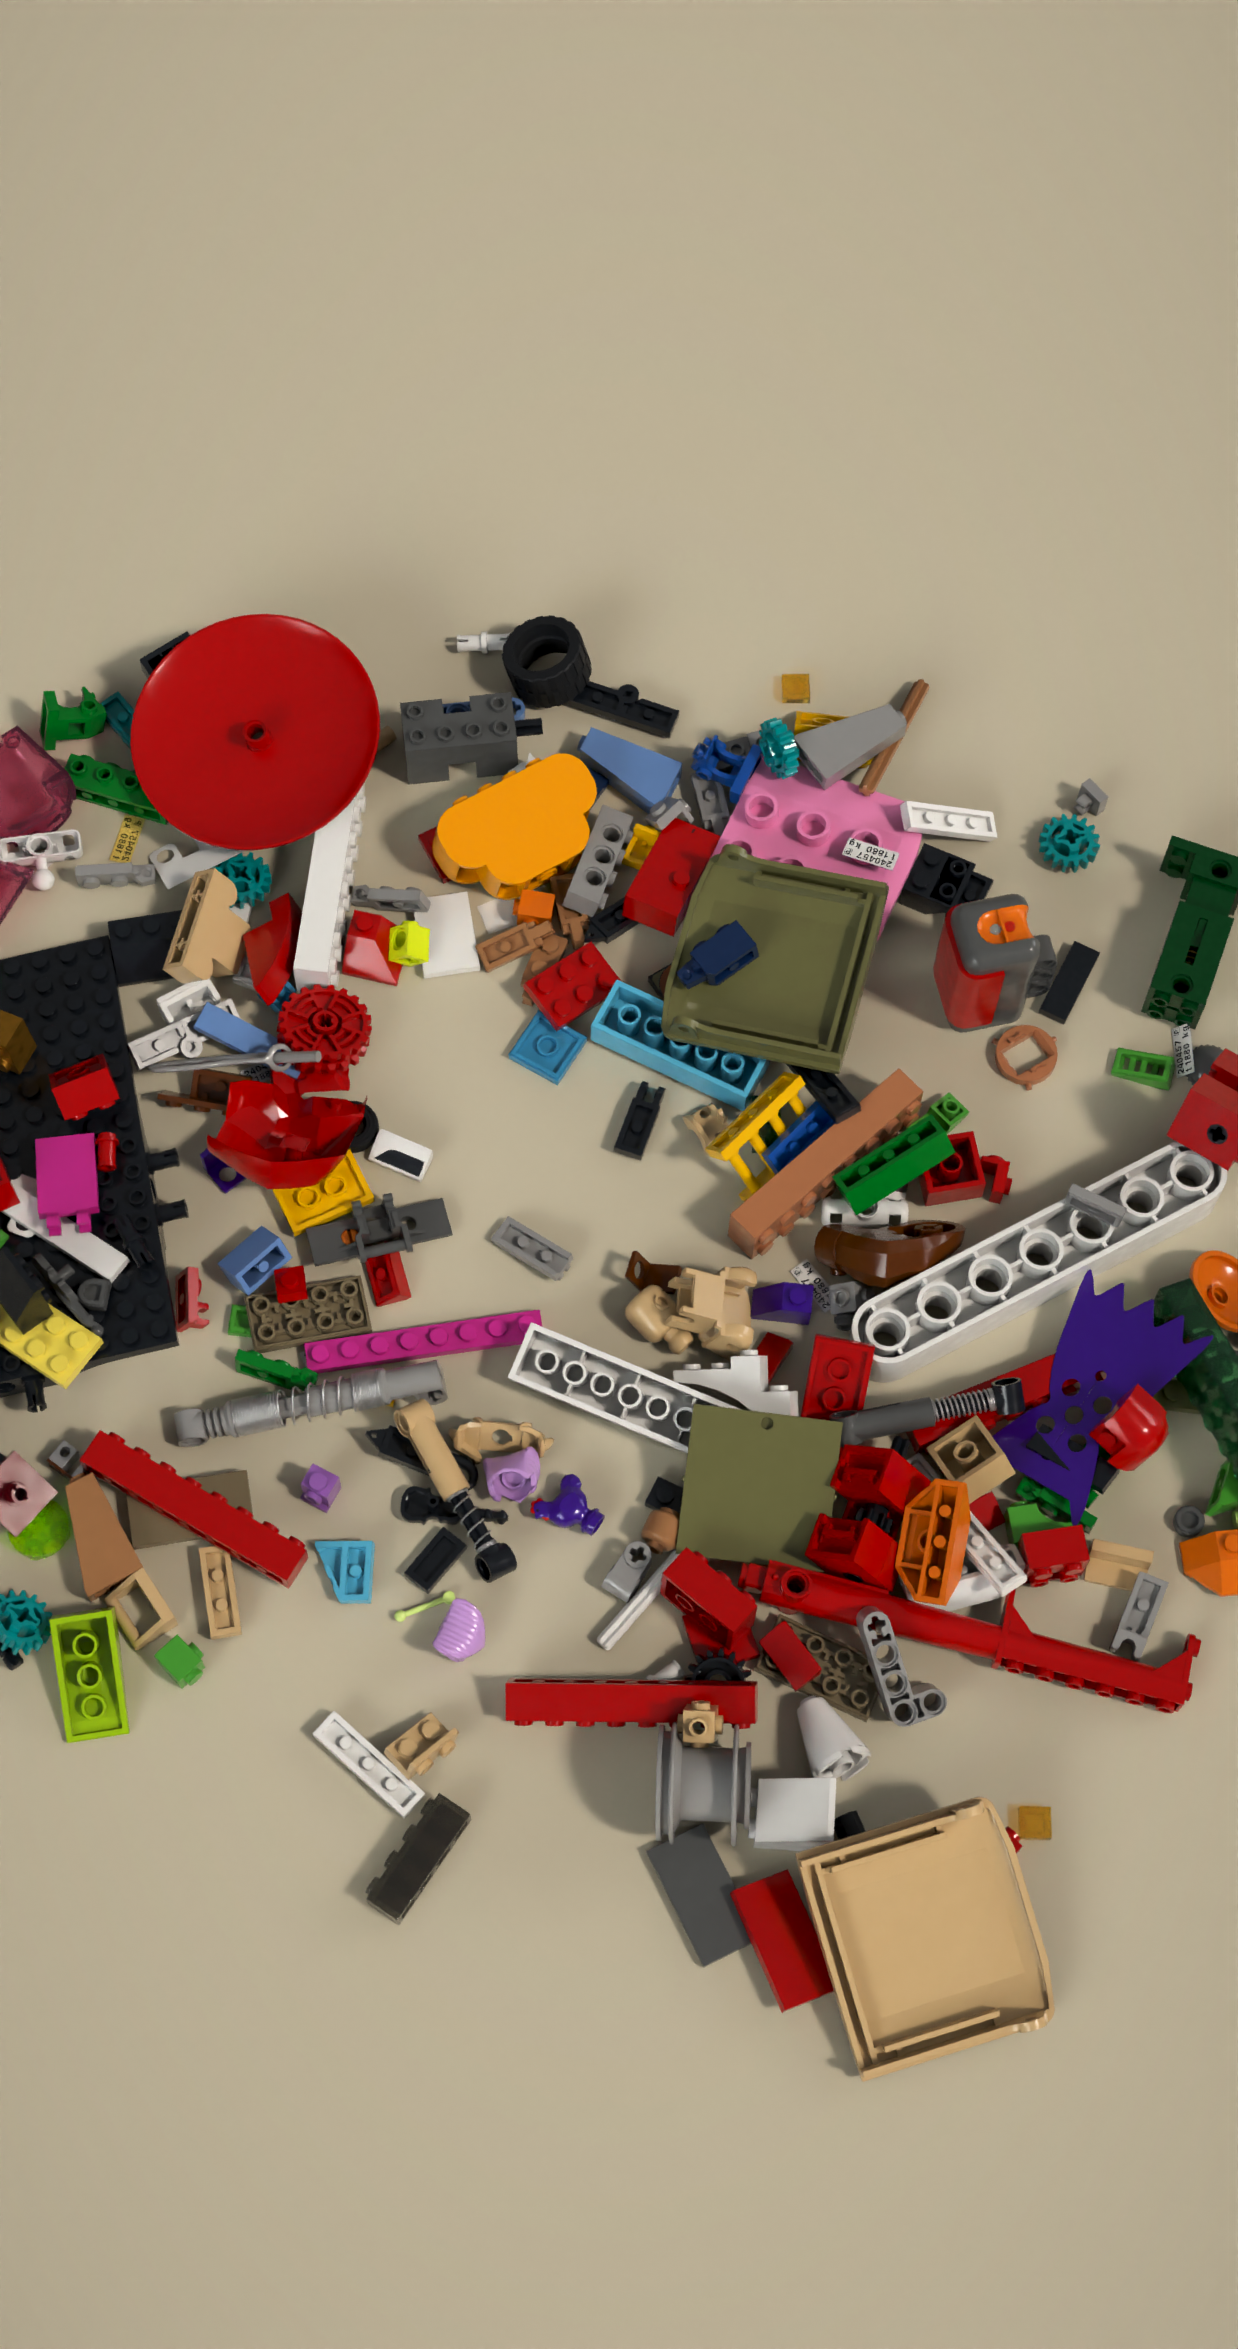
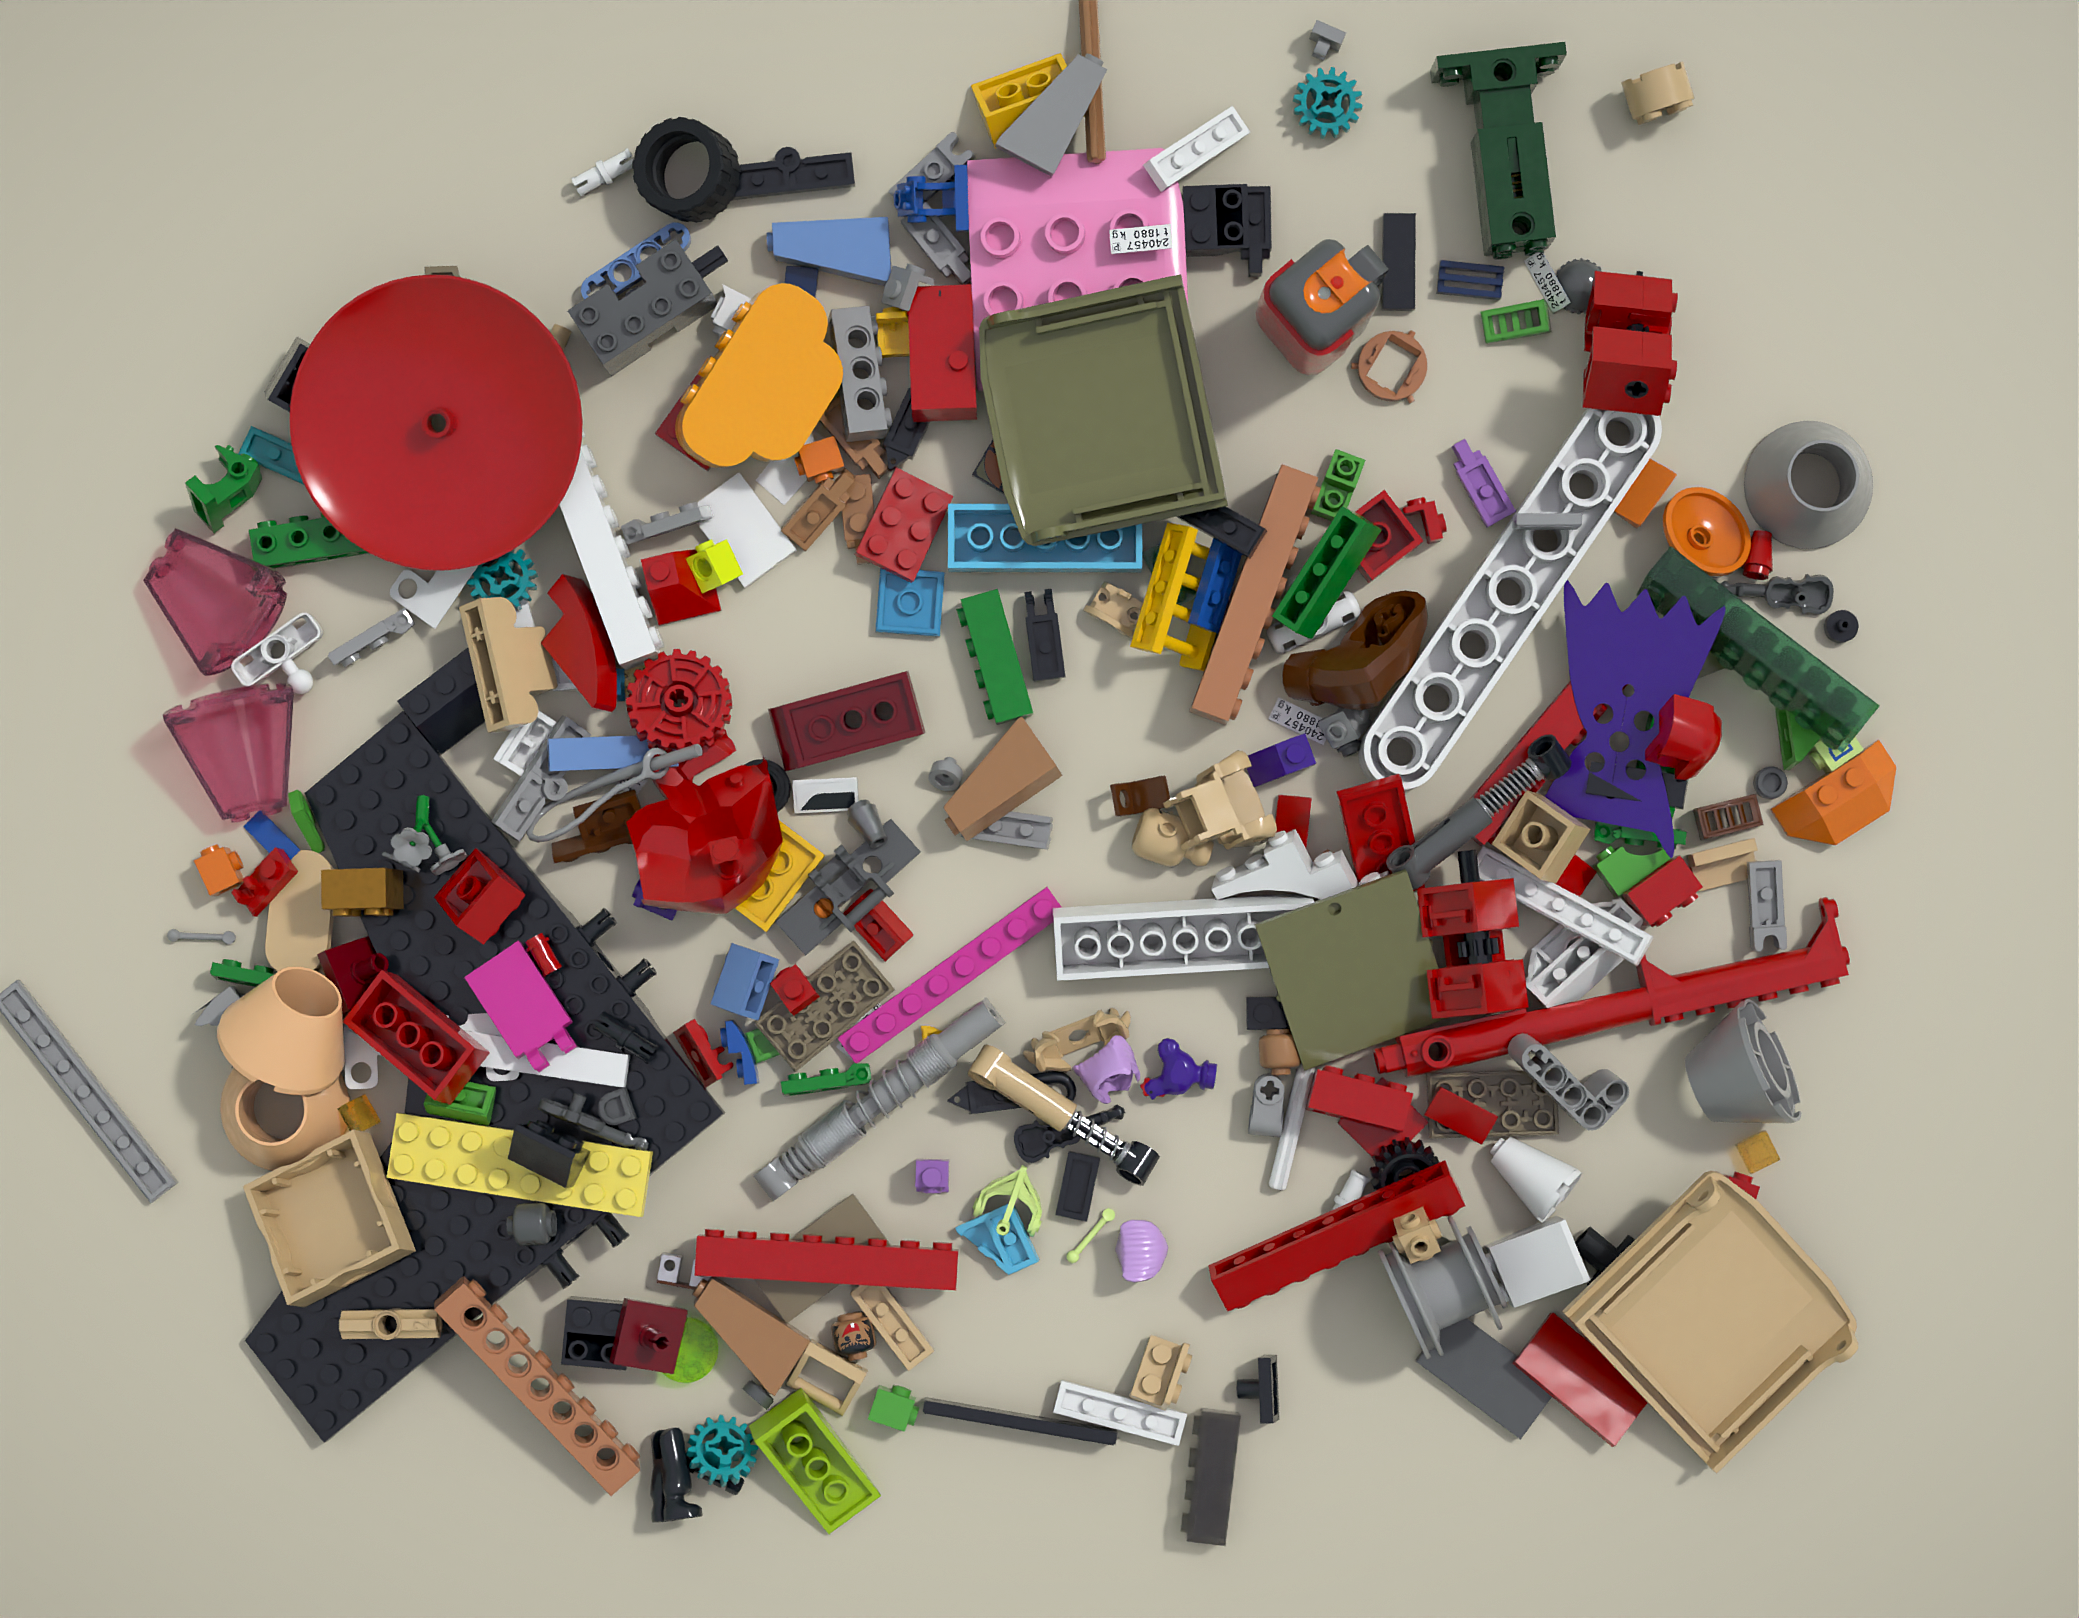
camera: 30 degrees left, 20 degrees up
(53, 1014) = (413, 846): none -> light grey plant
(76, 1594) = (758, 1394): none -> dark grey tile
(127, 839) = (356, 587): clear yellow sticker -> none
(182, 1585) = (853, 1335): none -> head
(221, 1309) = (737, 1042): none -> blue slope
(281, 1727) = (1020, 1421): none -> black tile
(387, 1530) = (1017, 1186): none -> yellowish green helmet
(420, 1101) = (817, 726): none -> dark red hinge
(421, 1187) = (866, 821): none -> flat silver cone
(503, 1806) = (1263, 1389): none -> black tile
(504, 1185) = (945, 774): none -> light grey tile
(545, 1208) = (1001, 782): none -> medium nougat slope
(593, 1117) = (996, 657): none -> green brick
(719, 956) = (1044, 435): dark blue hinge -> none
(779, 748) = (986, 160): teal gear -> none
(795, 688) = (957, 59): clear yellow tile -> none
(934, 1541) = (1549, 948): orange wedge -> none
(1052, 1736) = (1743, 1071): none -> light grey cone
(1054, 1170) = (1481, 484): none -> medium lavender hinge
(1123, 1017) = (1470, 267): none -> dark blue tile
(1142, 1520) = (1703, 822): none -> reddish brown slope
(1187, 1244) = (1644, 493): none -> orange slope

